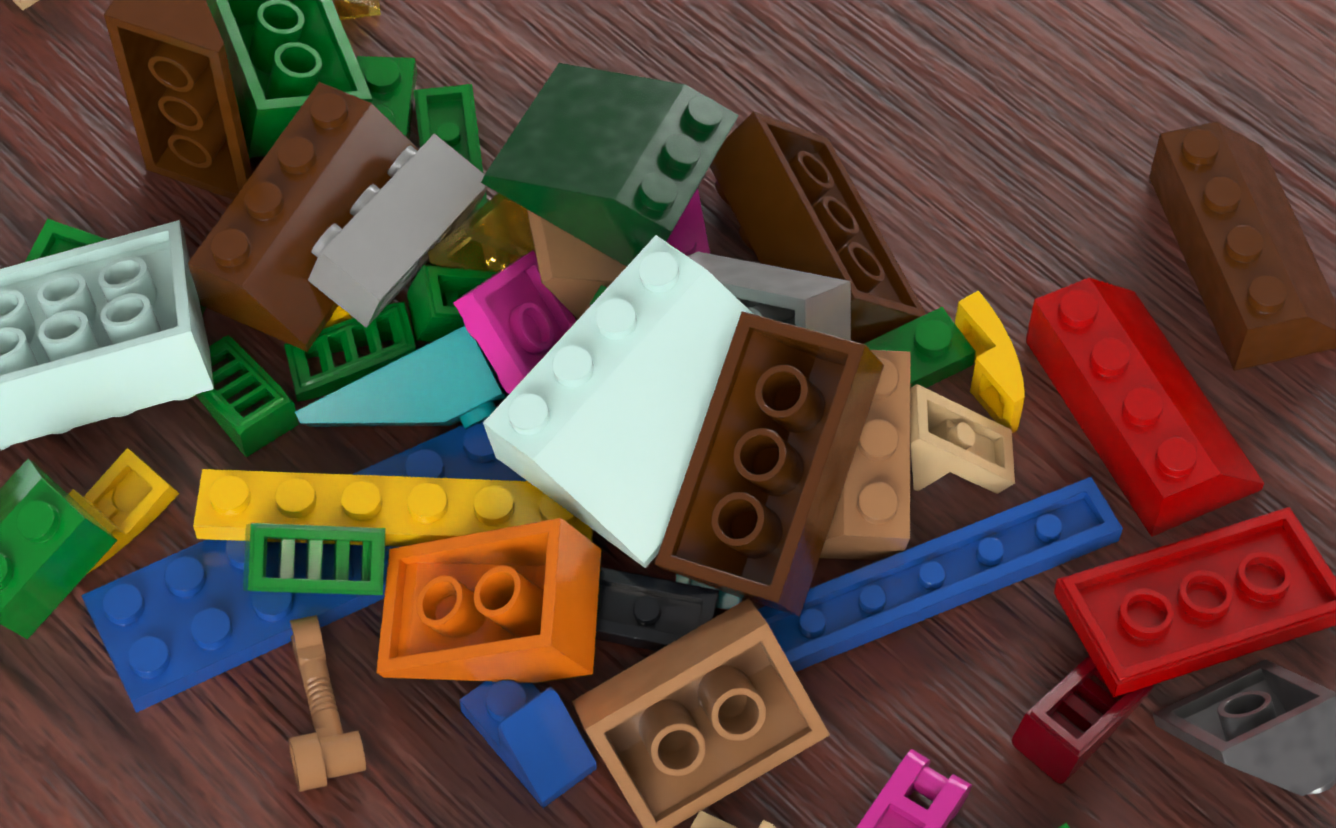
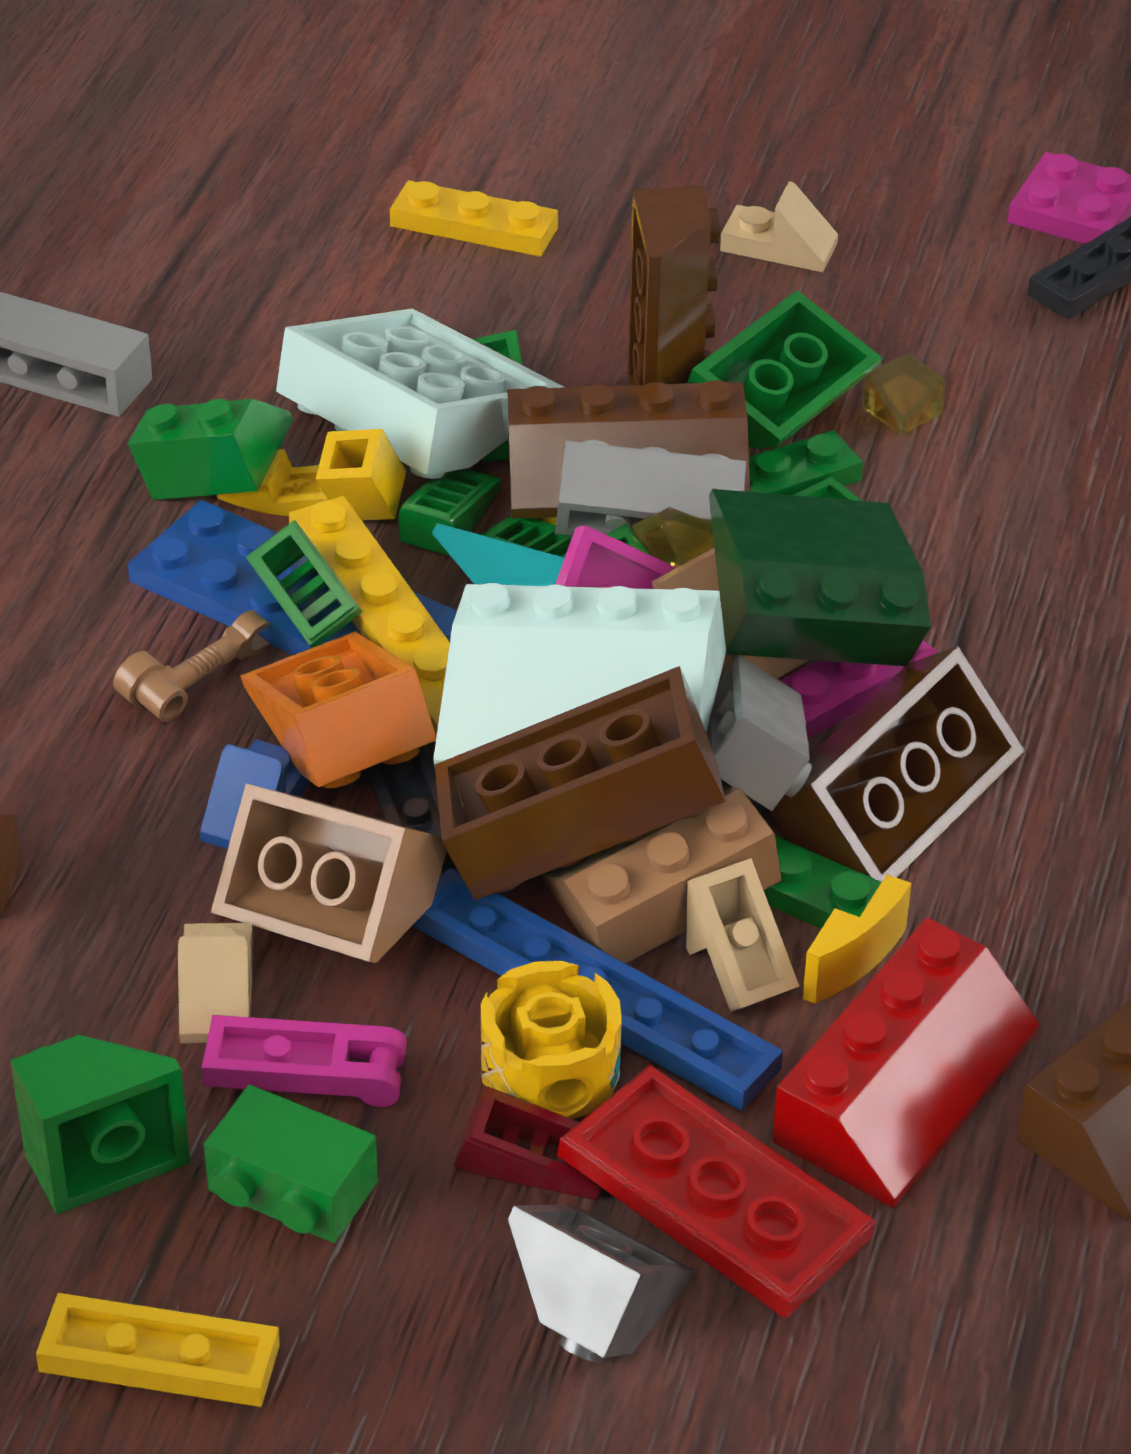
camera: 60 degrees right, 15 degrees down
(171, 441) = (363, 470): none -> yellow brick
(1001, 638) = (552, 1037): none -> yellow brick

